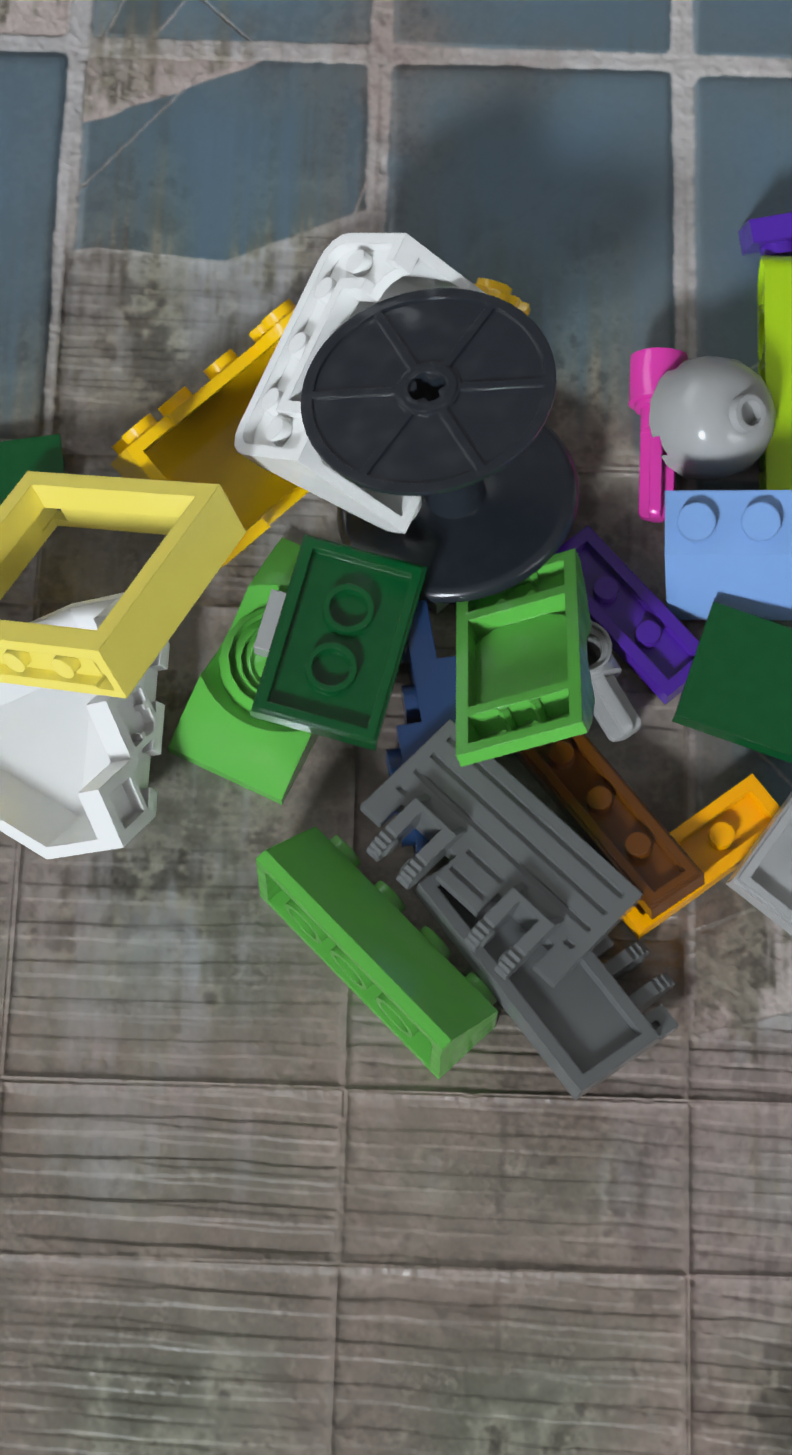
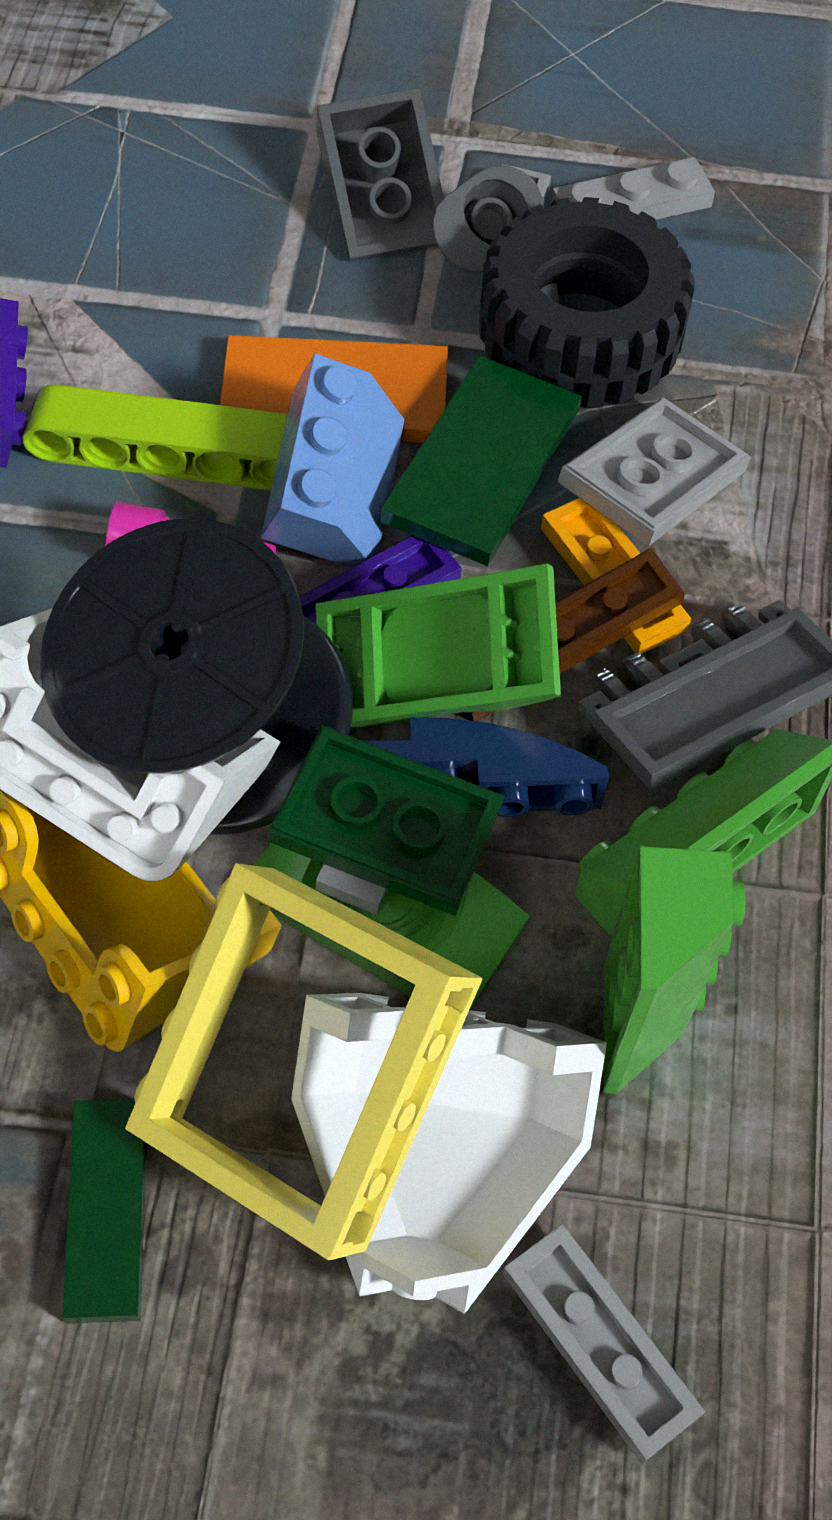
camera: 85 degrees left, 10 degrees down
(179, 870) = (664, 953): none -> bright green slope
(500, 850) = (628, 705): dark grey hinge -> none
(712, 417) = (191, 478): light grey cylinder -> none

